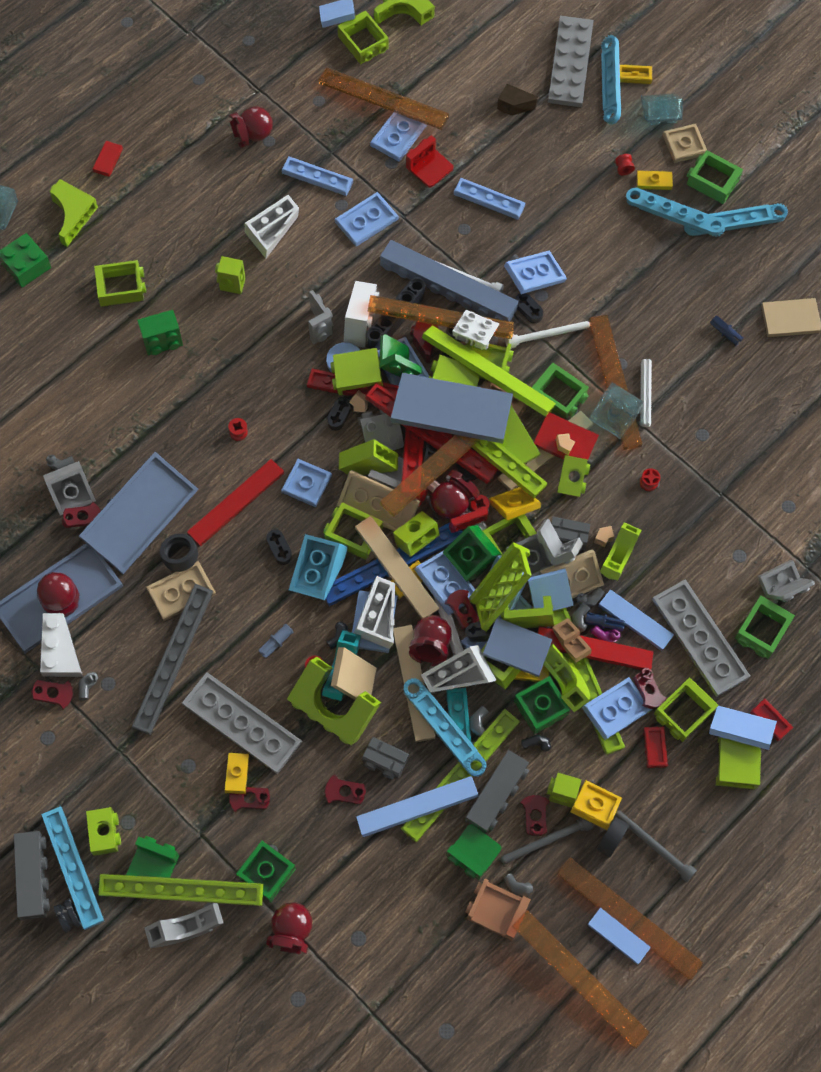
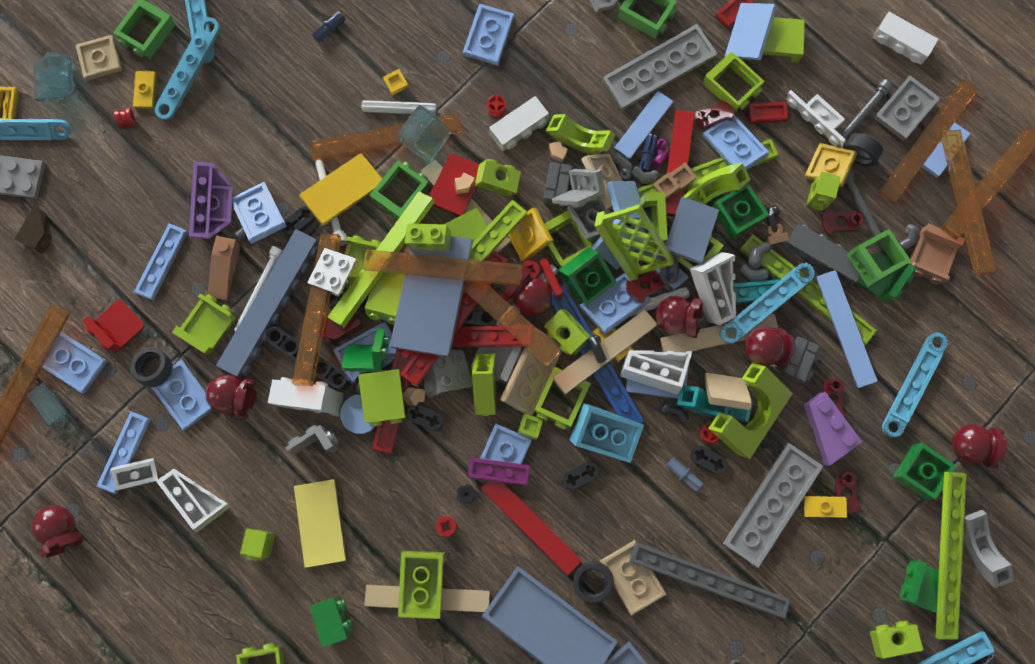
camera: 90 degrees left, 10 degrees up
(175, 413) = (451, 598): none -> tan tile
(188, 405) = (421, 584): none -> lime slope
(247, 327) = (319, 523): none -> light yellow tile
(266, 442) = (466, 499): none -> black plate
(285, 473) = (499, 471): none -> magenta tile
(285, 662) = (710, 455): none -> black beam
(296, 180) = (134, 474): none -> white brick
(314, 779) = (831, 429): none -> medium lavender wedge
(327, 502) = (530, 426): none -> lime plate
(358, 875) = (914, 384): none -> medium azure plate
(361, 118) = (47, 404): none -> clear light blue tile
(362, 253) = (229, 395): none -> dark red tile
(395, 183) = (143, 358): none -> black tyre
(397, 719) = (770, 347): none -> dark red tile
(404, 553) = (595, 346): none -> black arm
(429, 234) = (206, 324): none -> lime panel
(475, 415) = (443, 267): none -> clear orange tile
(481, 821) = (871, 273): none -> bright green window
(483, 245) = (222, 267): none -> nougat slope
(496, 720) = (756, 255): none -> dark grey arm
(503, 400) = (428, 237): none -> lime brick
(515, 741) = (776, 237): none -> medium nougat tile
(543, 231) = (209, 201): none -> medium lavender wedge
(554, 940) = (968, 202): none -> clear orange tile
(559, 340) = (341, 189): none -> yellow tile
(631, 499) = (519, 124): none -> white brick
(652, 799) = (821, 115): none -> white bracket
(665, 895) = (906, 108): none -> light grey plate
(671, 389) = (395, 82): none -> yellow plate
(728, 475) = (488, 34): none -> light blue tile
(747, 899) = (905, 38): none -> white brick

